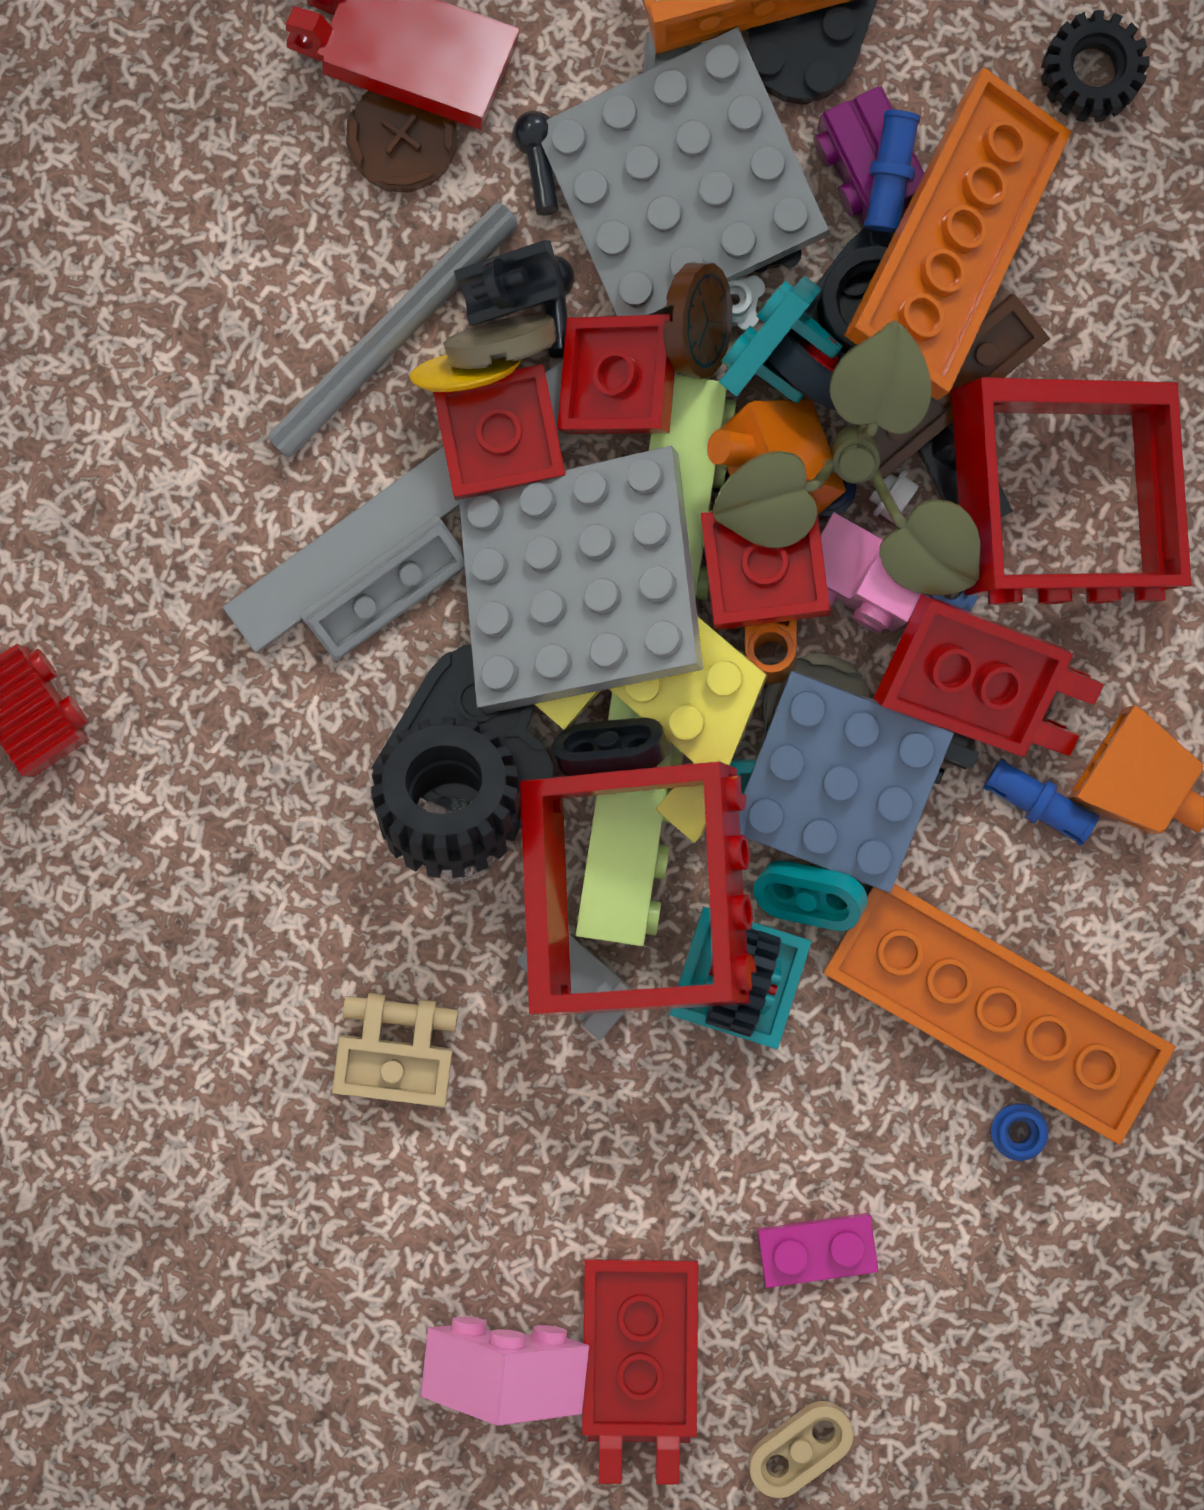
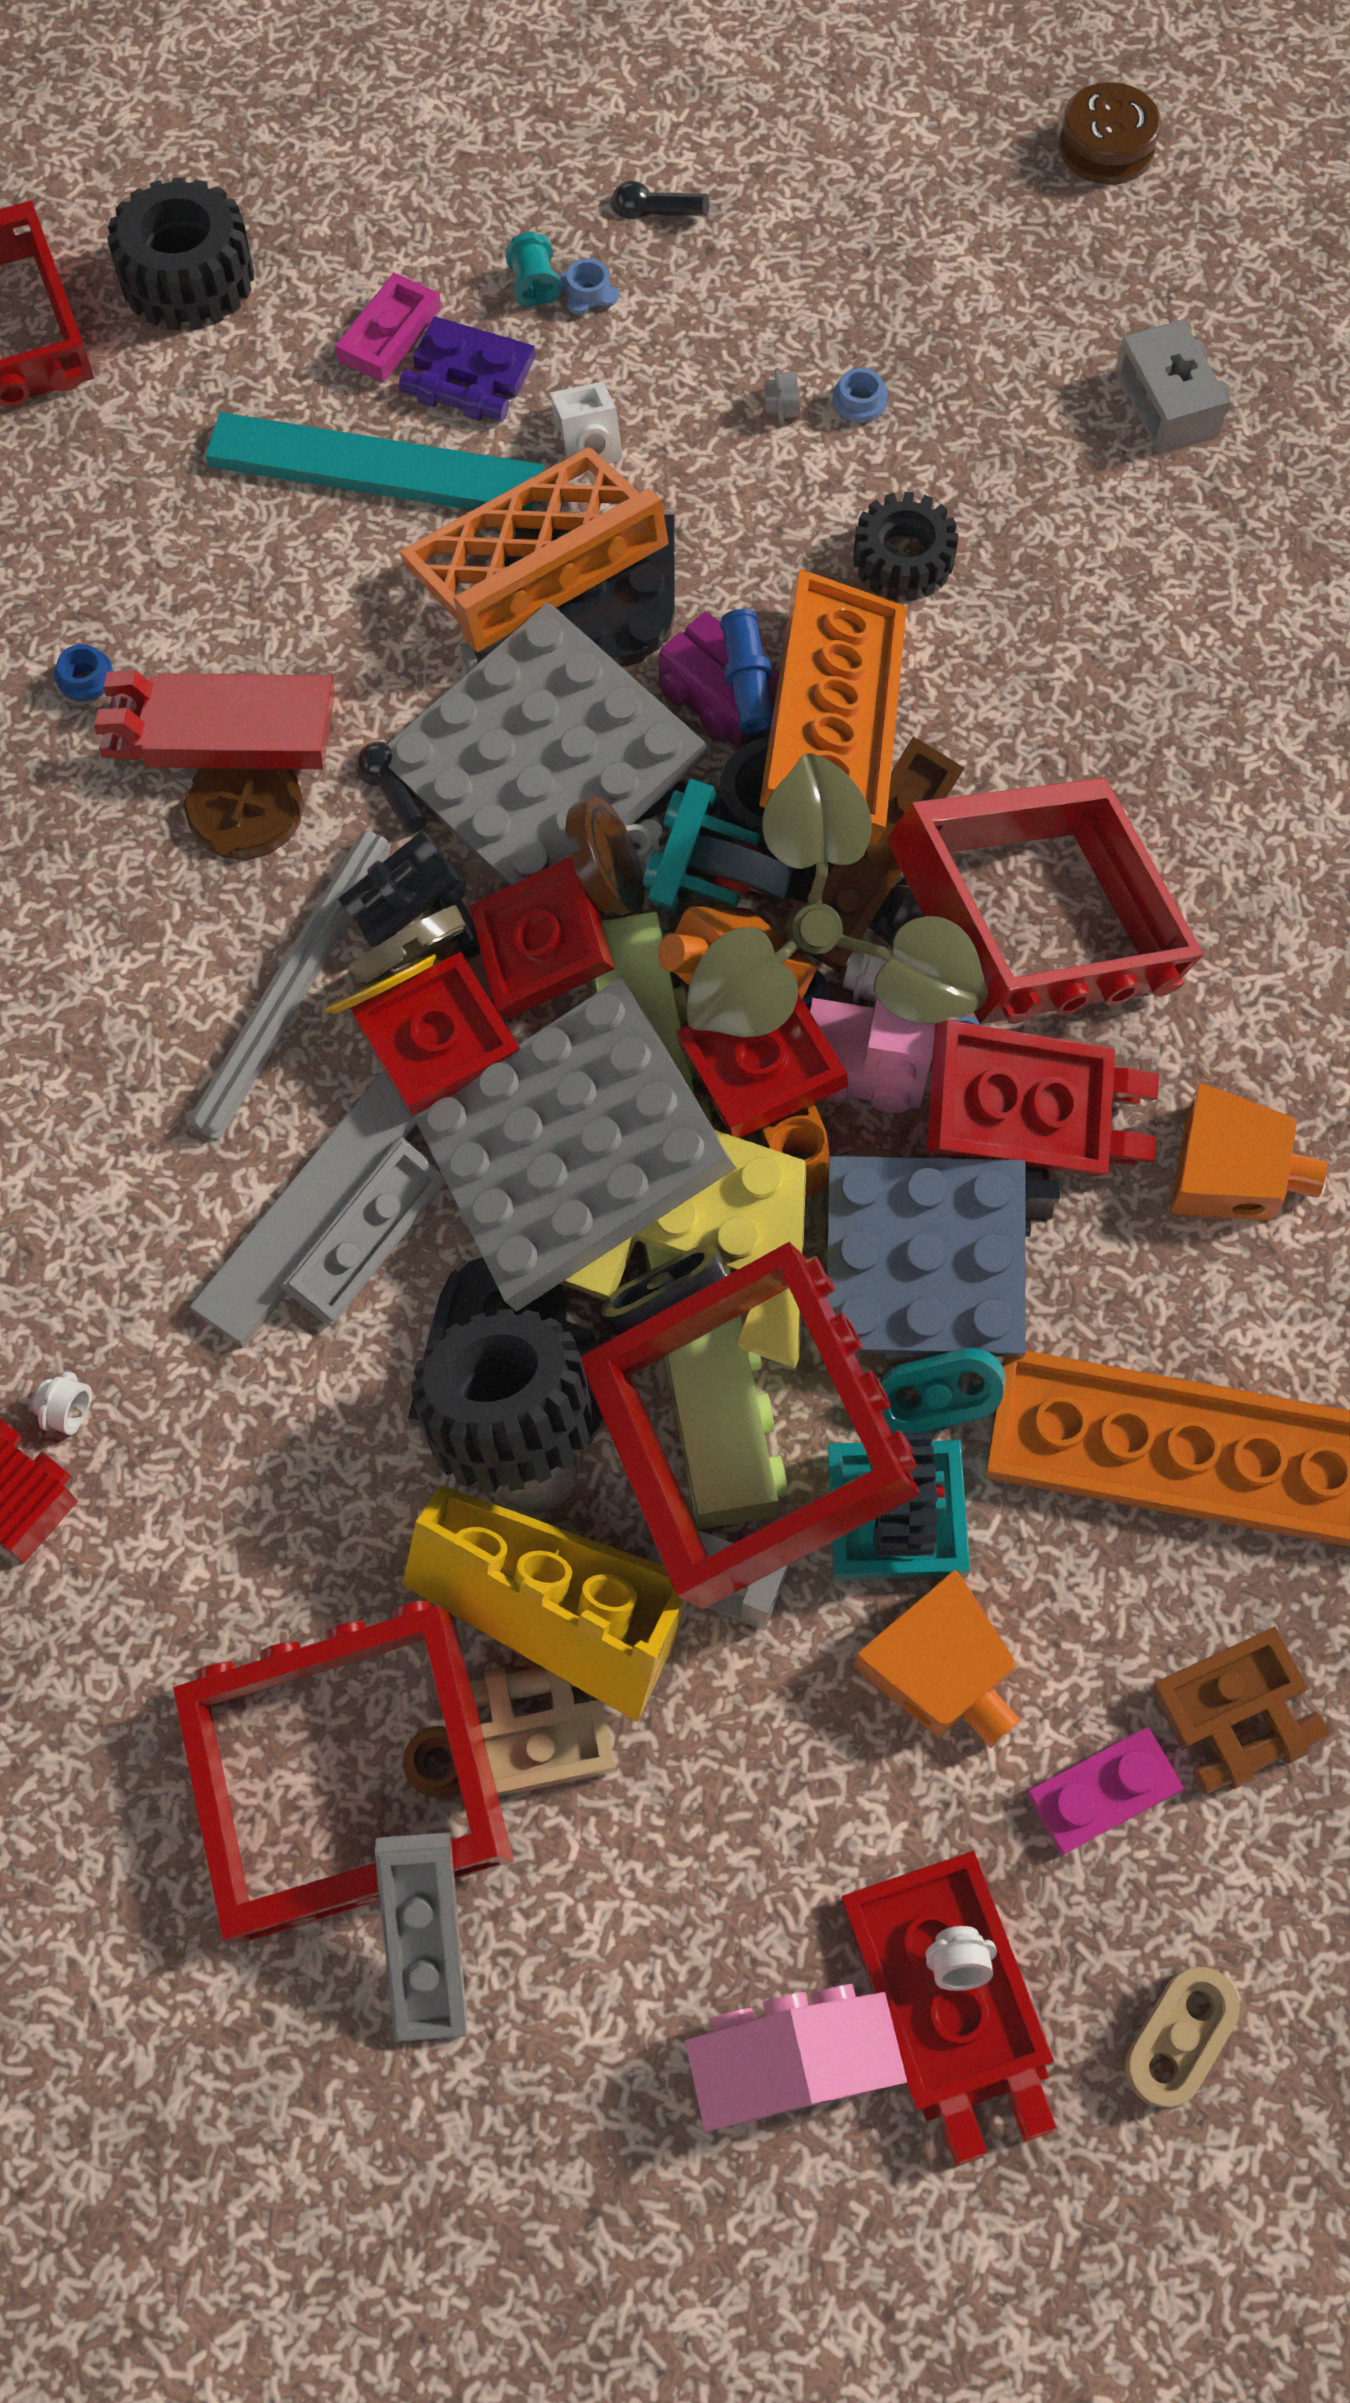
camera: 20 degrees left, 20 degrees down
(92, 653) = (54, 1400): none -> white plate
(254, 1190) = (421, 1936): none -> light grey tile
(293, 1053) = (415, 1763): none -> dark orange plate
(328, 1130) = (286, 1662): none -> red window
(435, 959) = (548, 1595): none -> yellow wedge
(654, 1344) = (961, 1959): none -> white plate
(729, 1115) = (944, 1663): none -> orange torso
(947, 1210) = (1233, 1688): none -> dark orange plate
(1034, 1141) = (1289, 1565): blue plate -> none
(1041, 801) = (1144, 1220): blue pin -> none

